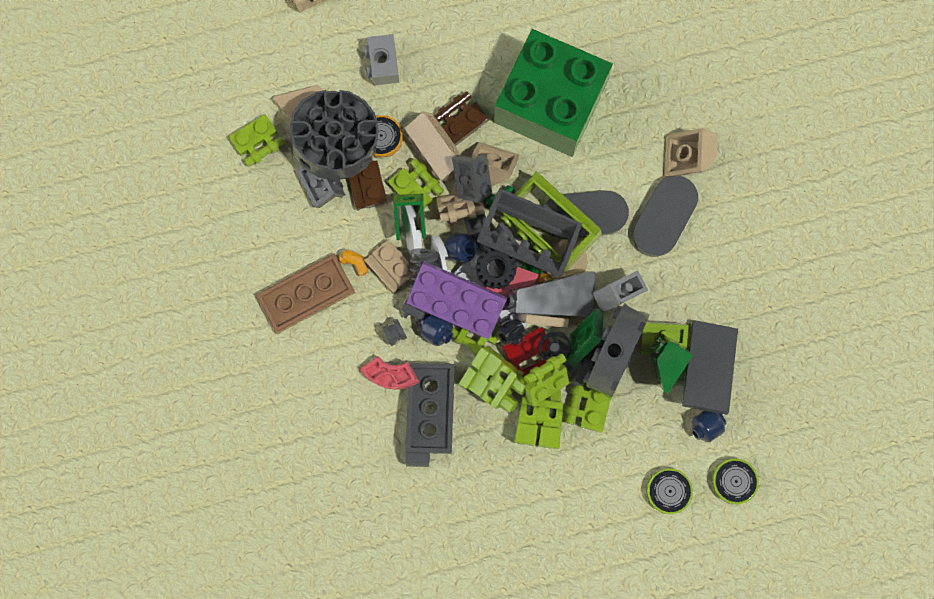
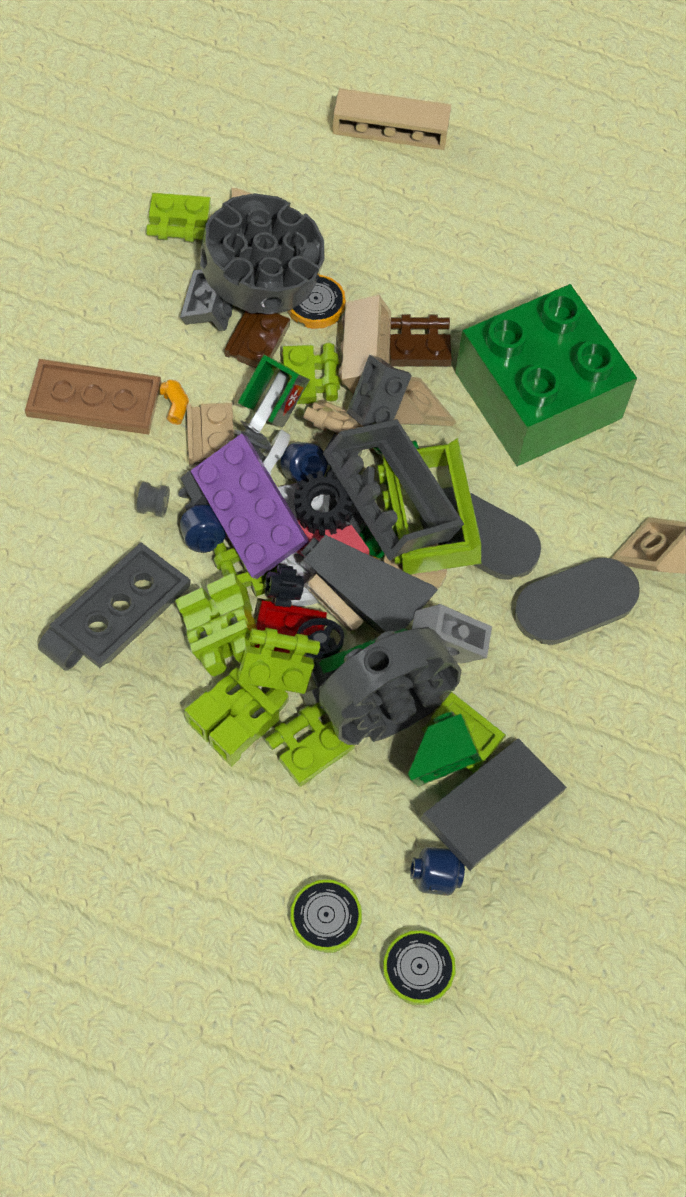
camera: 30 degrees right, 15 degrees down
(382, 47) = (381, 227): light grey brick -> none
(390, 376) = (108, 540): coral tile -> none

